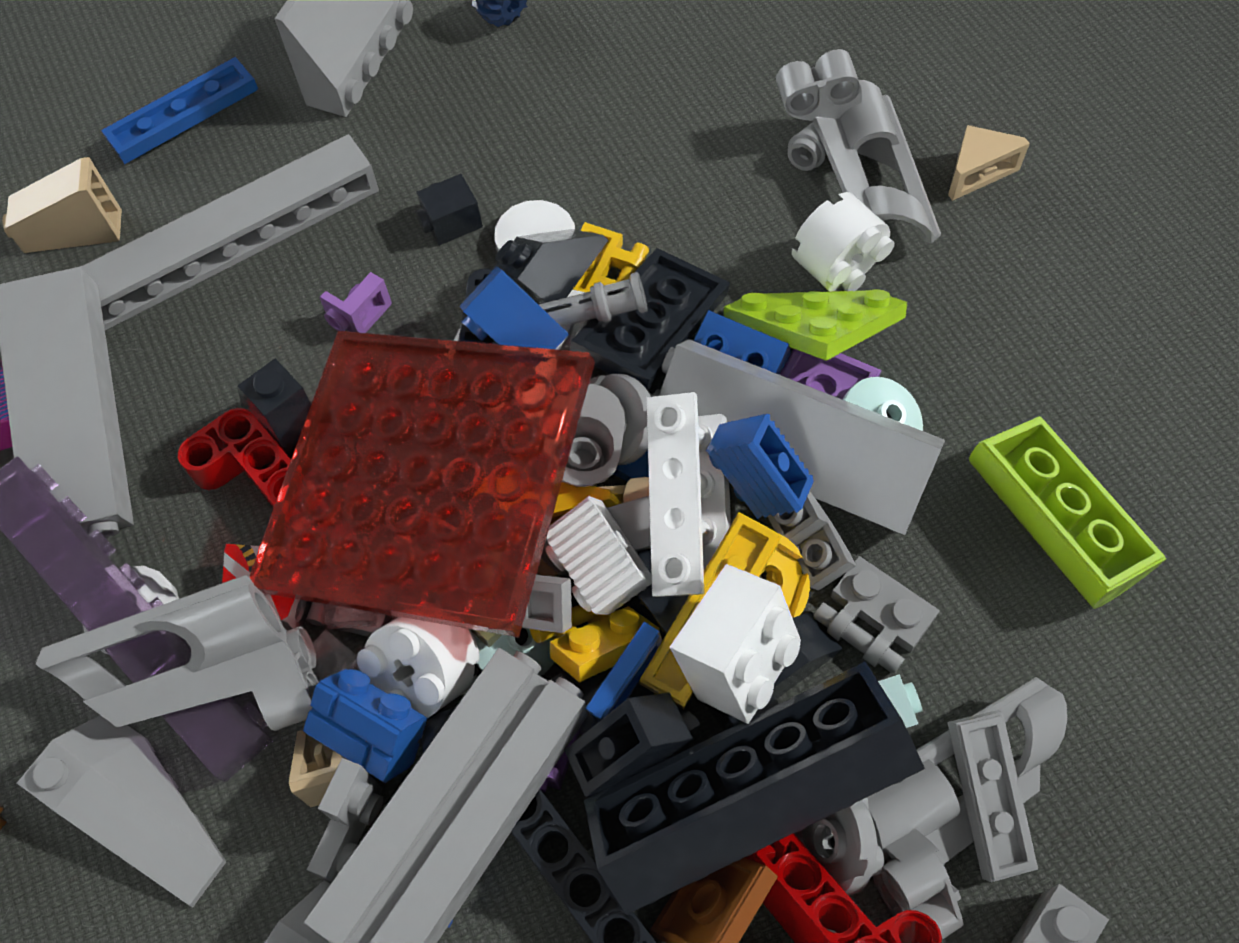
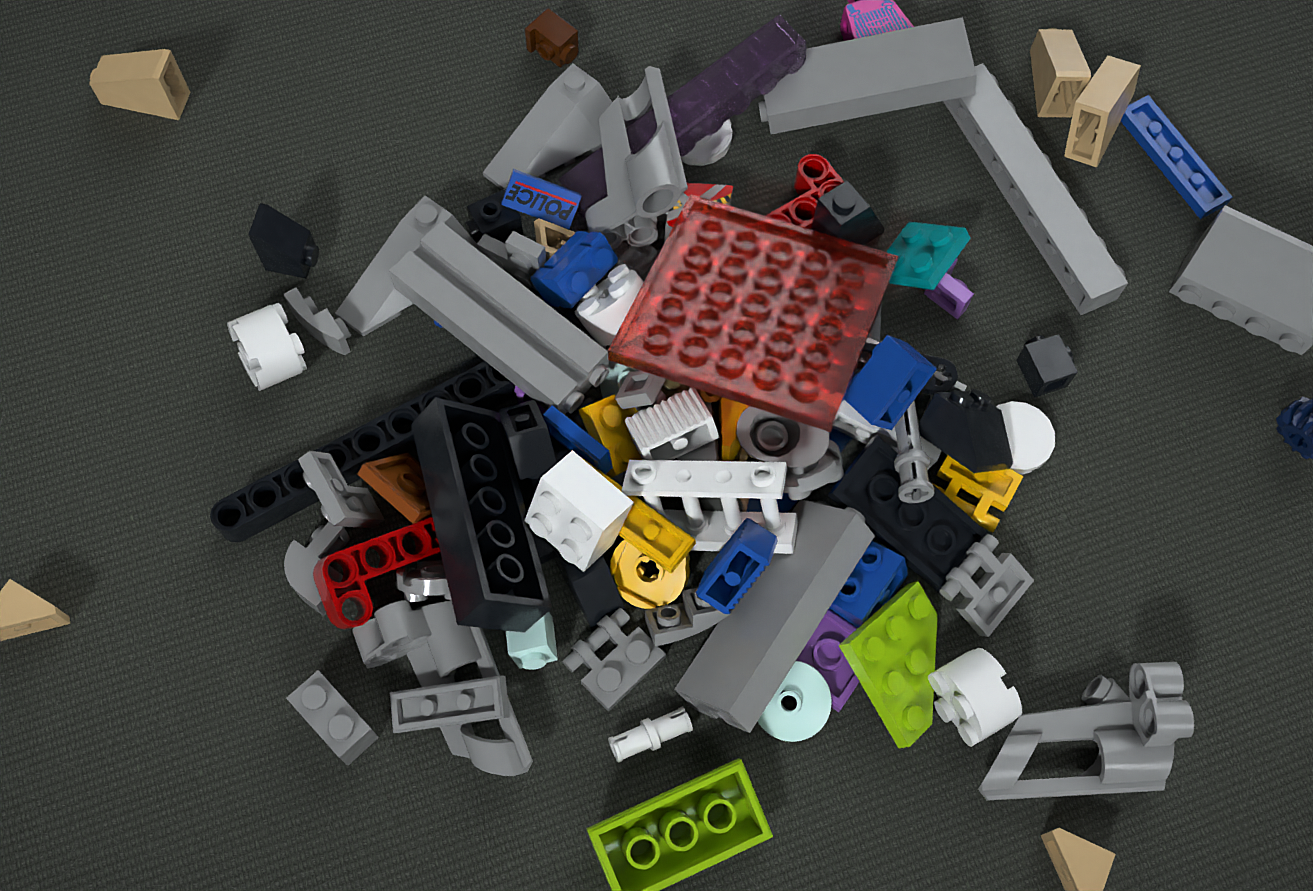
camera: 90 degrees right, 5 degrees up
(126, 163) = (1101, 110): none -> tan slope
(252, 791) = (541, 199): none -> blue tile
(276, 867) = (492, 219): none -> black brick
(310, 323) = (926, 253): none -> teal plate
(714, 248) = (994, 593): none -> light grey plate
(957, 560) = (650, 734): none -> white pin

